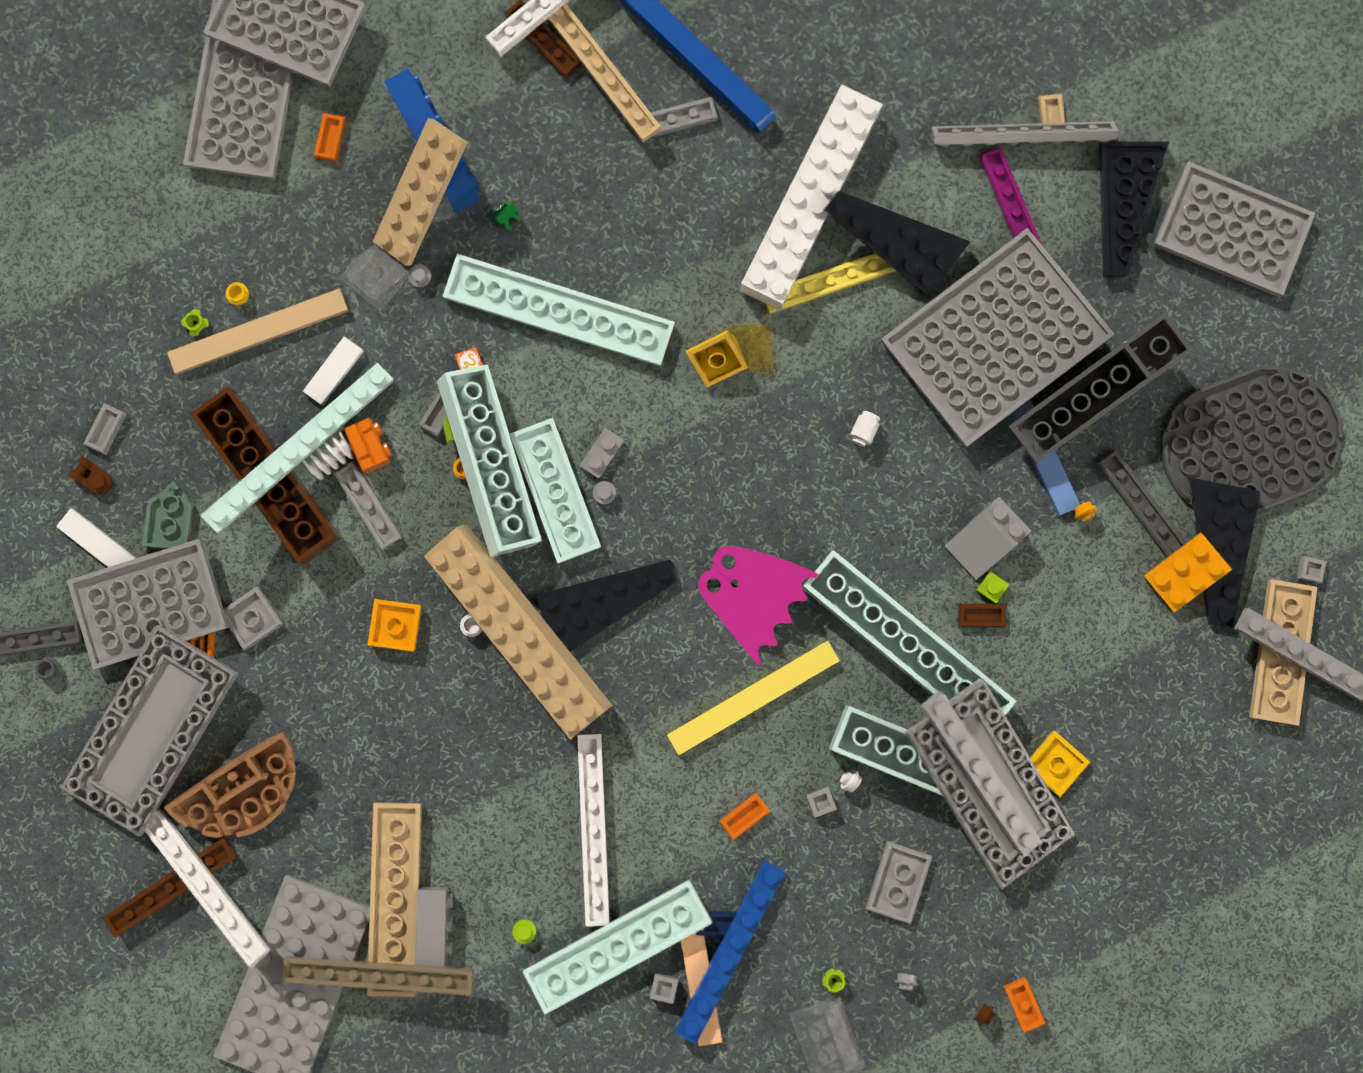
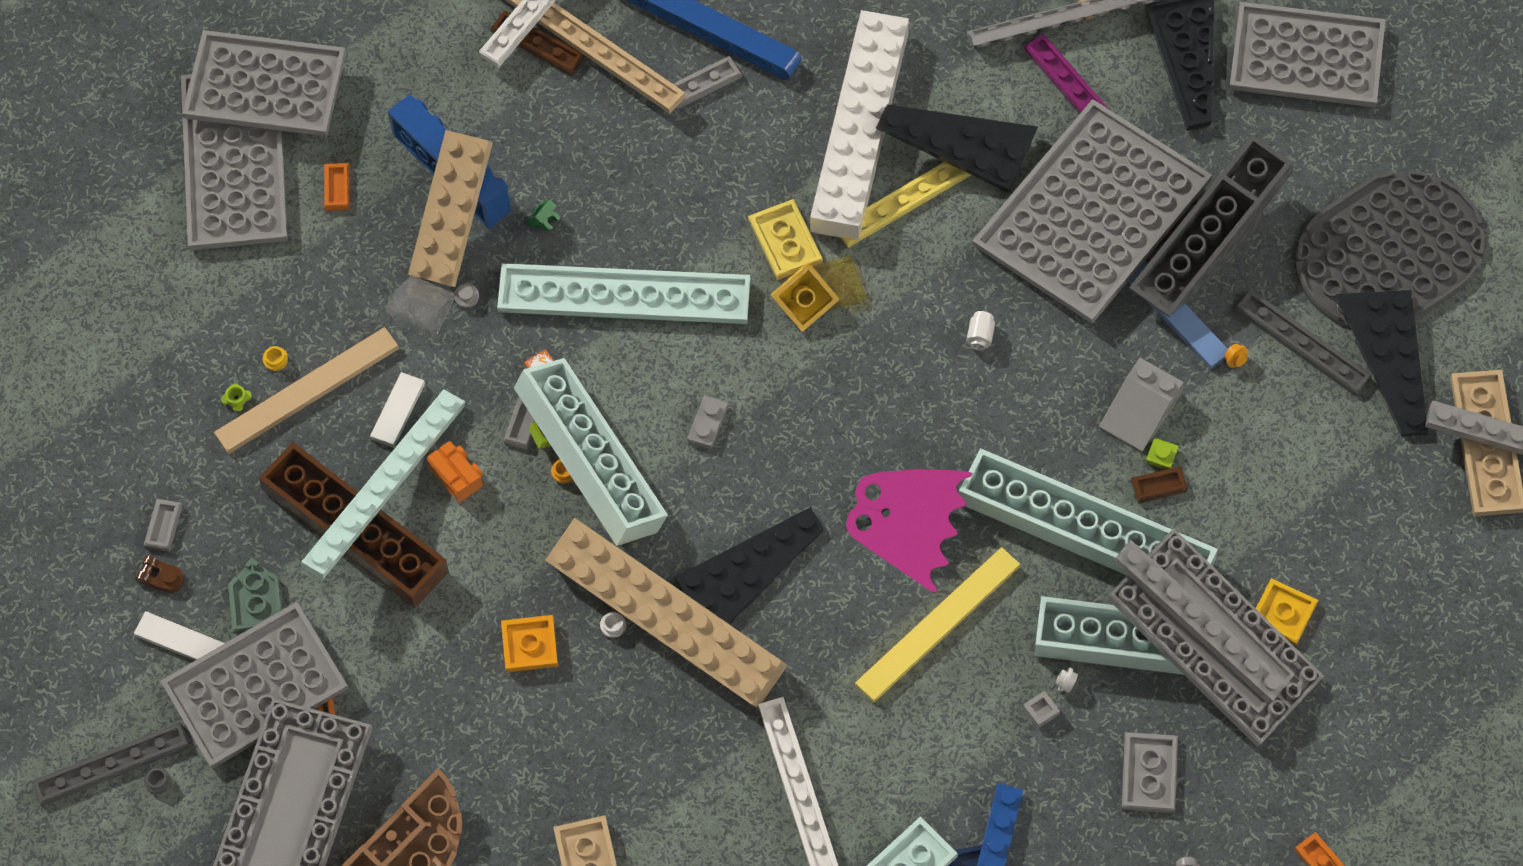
camera: 10 degrees left, 20 degrees down
(252, 618) = (371, 676): light grey tile -> none
(329, 457) = (415, 490): white piece -> none
(368, 505) = (469, 533): light grey tile -> none
(555, 490) = (669, 470): light aqua plate -> none
(604, 492) = (721, 459): light grey plate -> none
(715, 292) = (785, 239): none -> light yellow tile
(744, 816) = (962, 746): orange tile -> none
(1187, 572) = (1361, 387): light orange plate -> none
(1311, 570) = (1493, 357): light grey tile -> none

